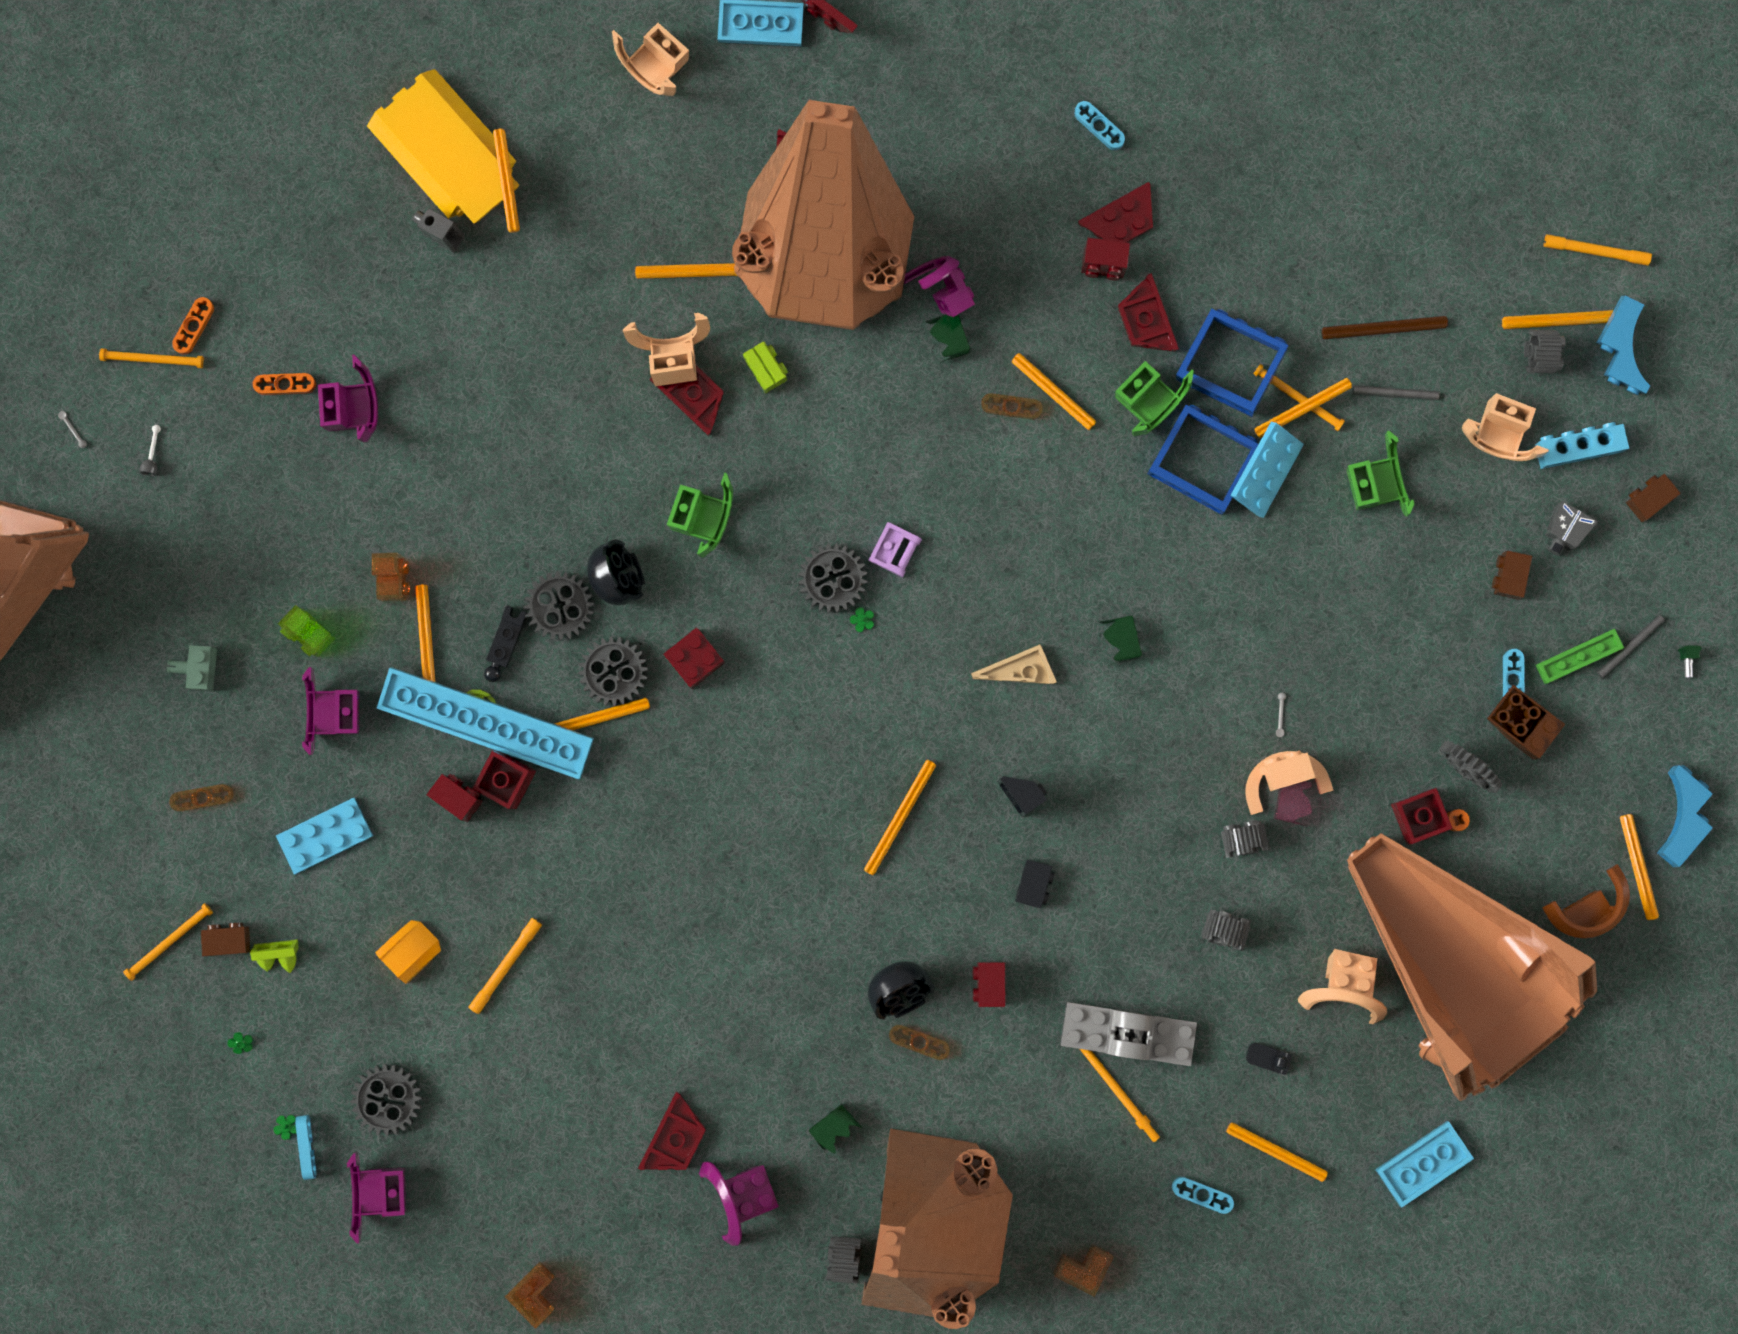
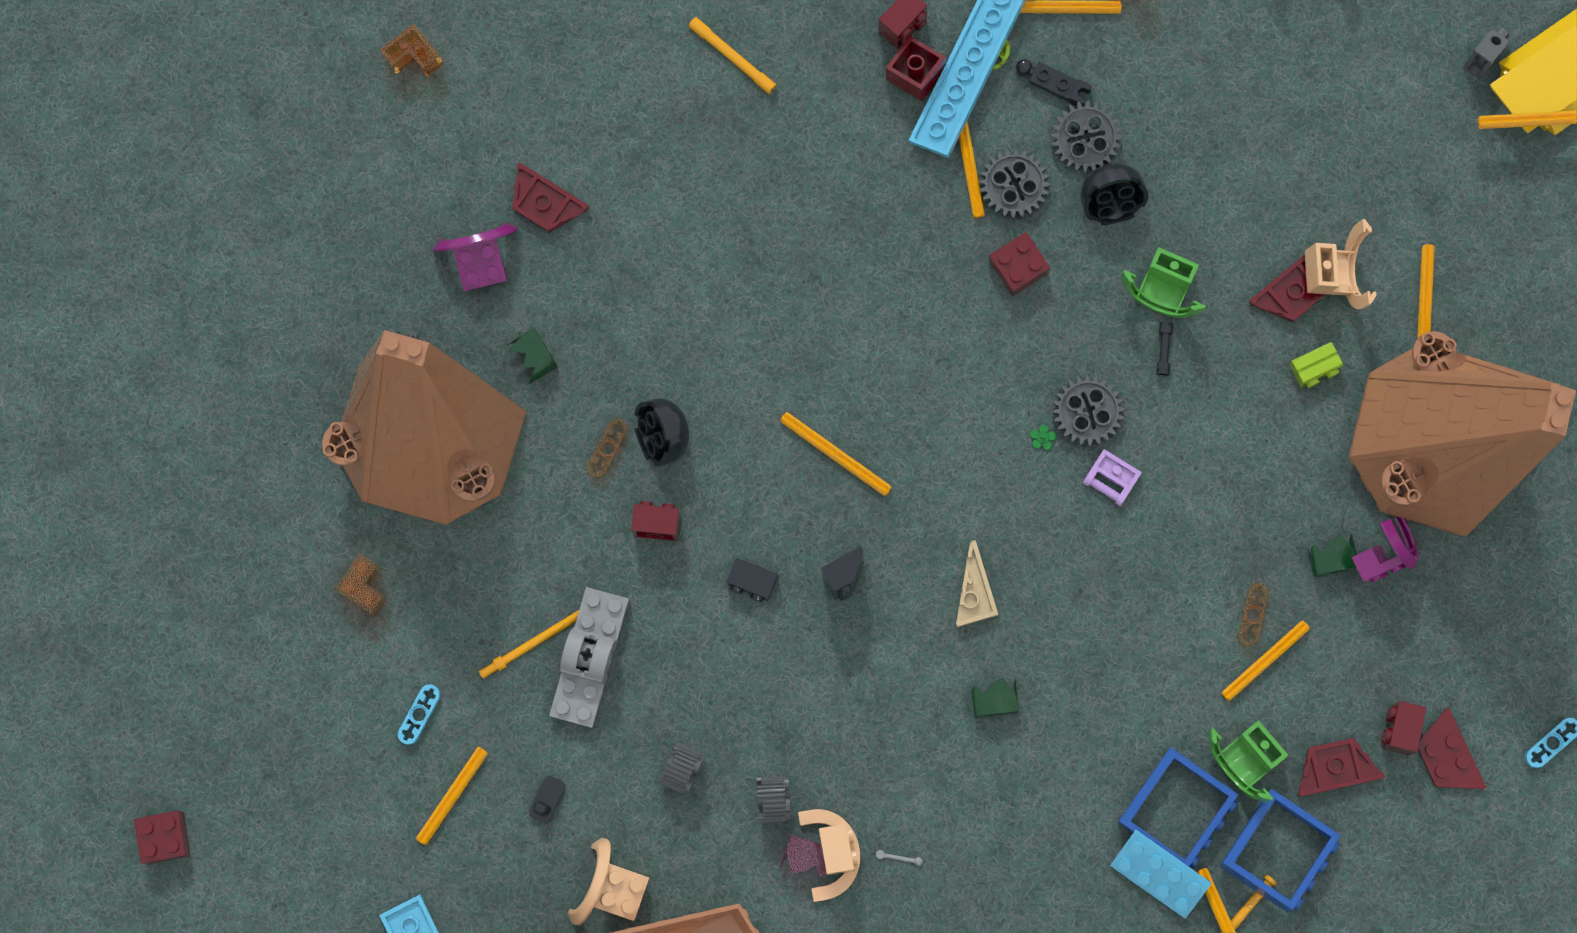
camera: 105 degrees right, 5 degrees down
(781, 511) = (1165, 331): none -> black bar

